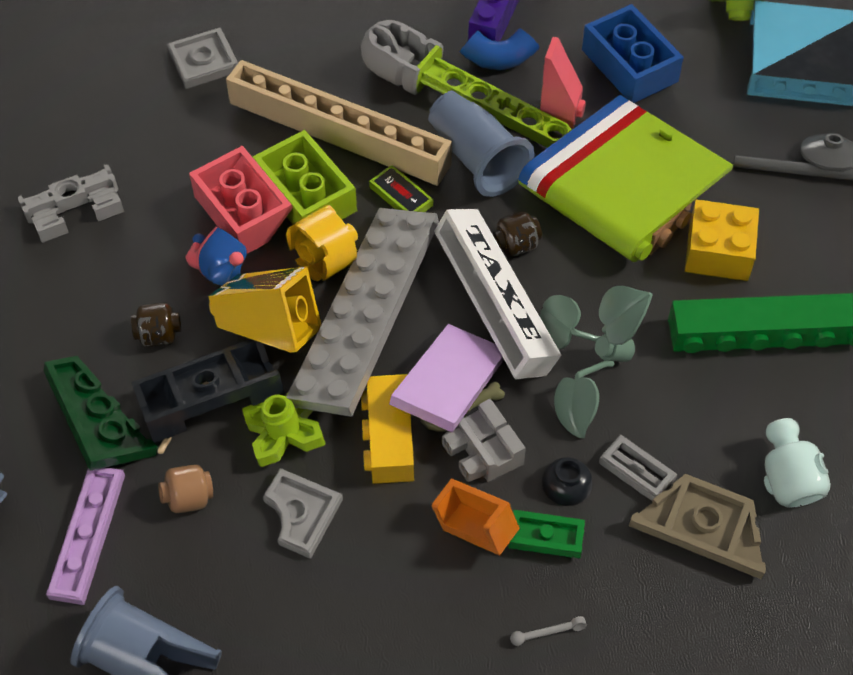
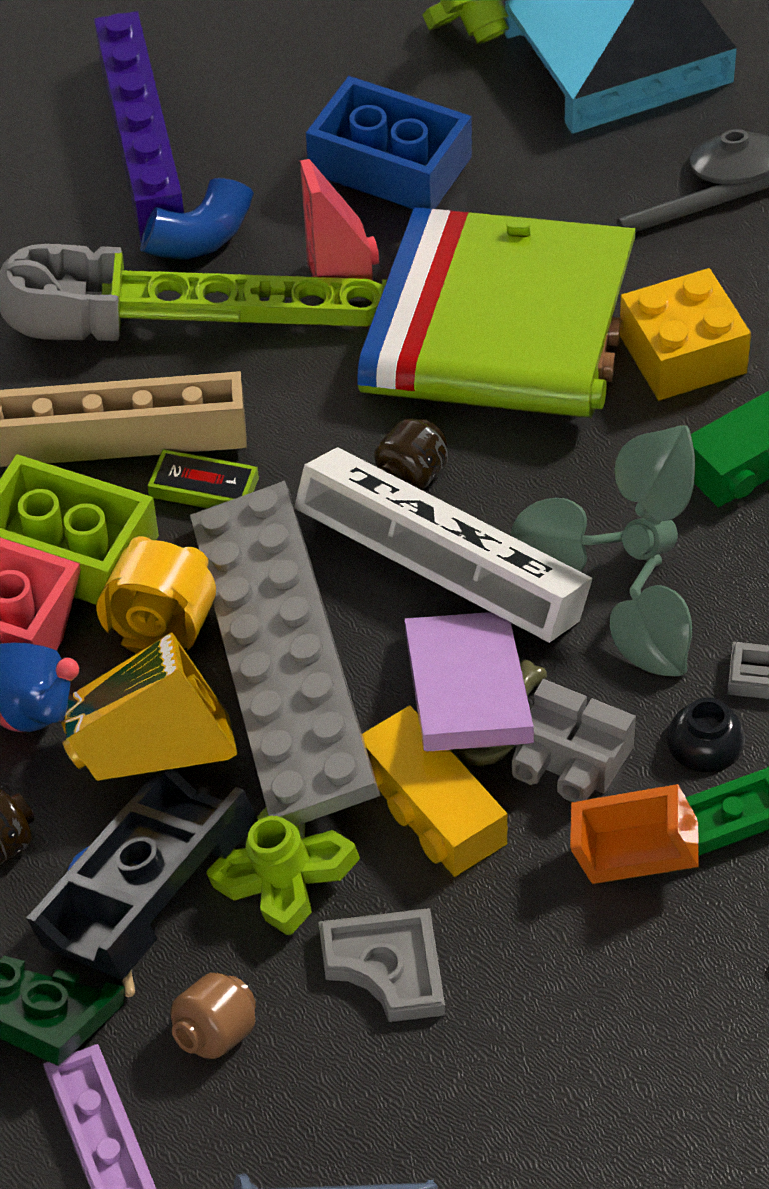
camera: 30 degrees left, 5 degrees down
(481, 143) = (277, 354): sand blue piece -> none

